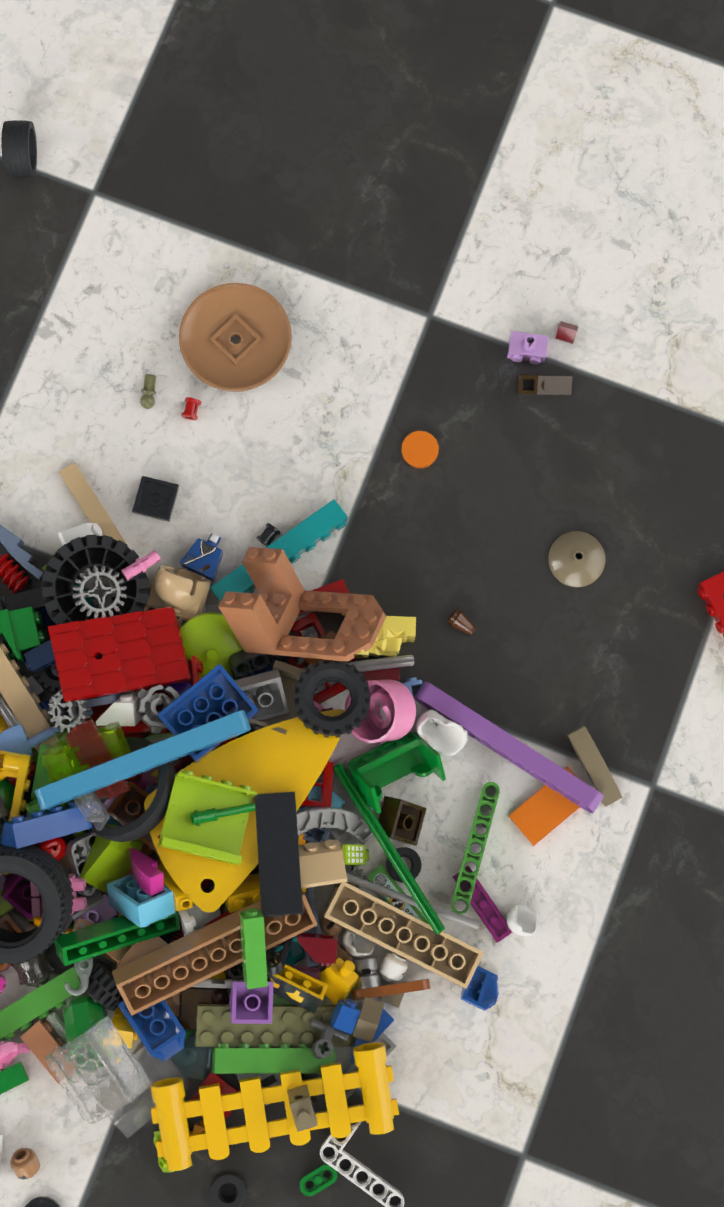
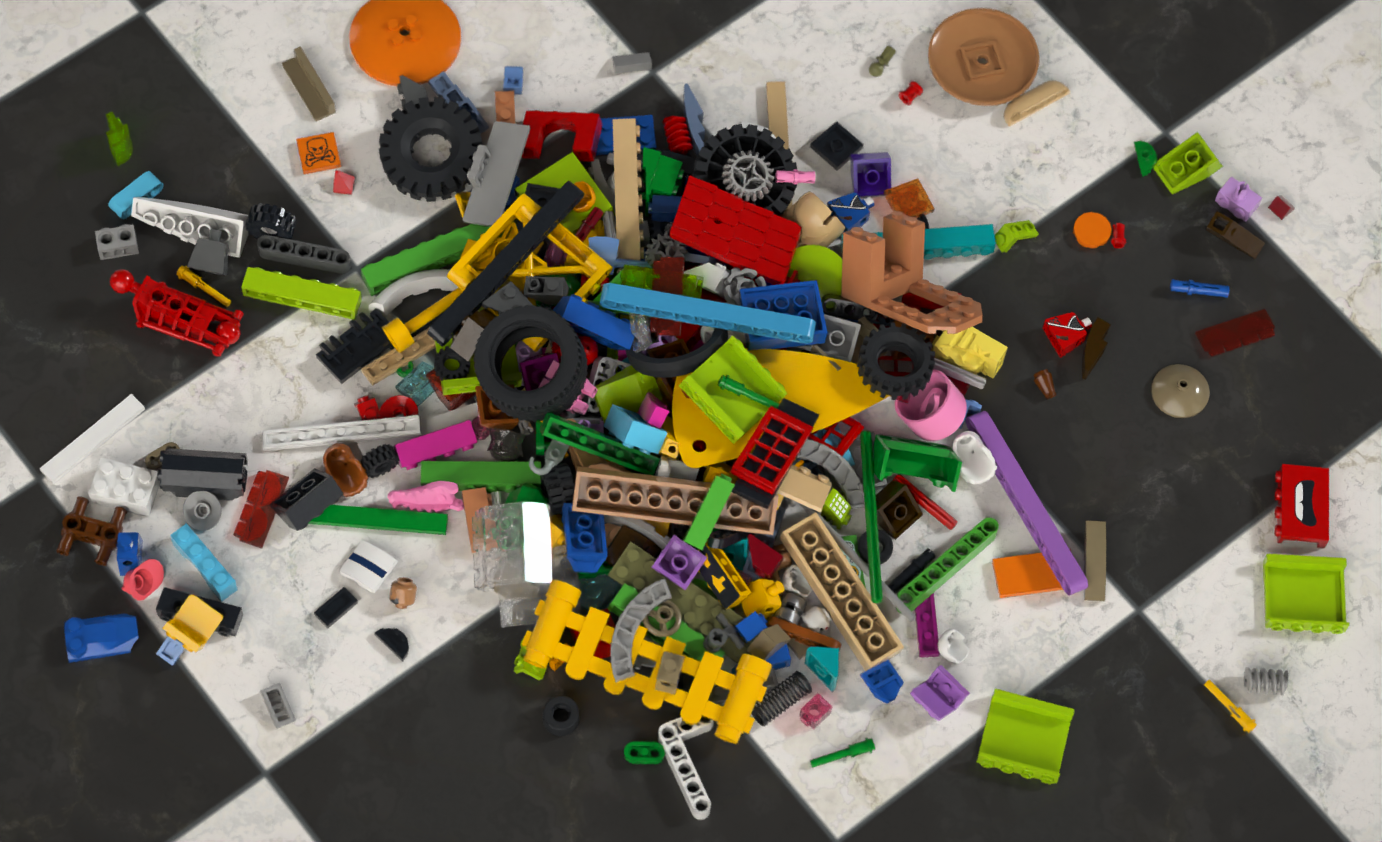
camera: 30 degrees right, 15 degrees down
(201, 509) = (870, 173): none -> dark purple slope
(241, 1088) = (628, 625): none -> light grey tile
(248, 516) = (909, 199): none -> clear orange tile
(259, 1059) = (668, 612): none -> dark tan piece
(274, 895) = (754, 478): none -> red piece
(301, 352) = (1034, 101): none -> tan brick
(357, 493) = (1011, 232): none -> lime bracket
(400, 1086) = (764, 721): none -> black piece
(422, 796) = (929, 505): none -> red axle
(427, 351) = (1146, 156): none -> green plate
(427, 1007) = (824, 664): none -> teal slope
(438, 1042) = (816, 703): none -> clear pink brick
(445, 442) = (1118, 239): none -> red pin
(446, 871) = (917, 566): none -> black pin
(453, 562) = (1066, 332): none -> red torso
(466, 339) = (1187, 164): none -> lime slope
(483, 563) = (1094, 346): none -> dark brown slope
(491, 1065) = (852, 750): none -> green pin
(522, 460) = (1199, 288): none -> blue pin
(535, 974) = (940, 694): none -> medium lavender bracket
(588, 478) = (1231, 332): none -> clear red windscreen
(625, 965) = (1025, 736): none -> lime panel

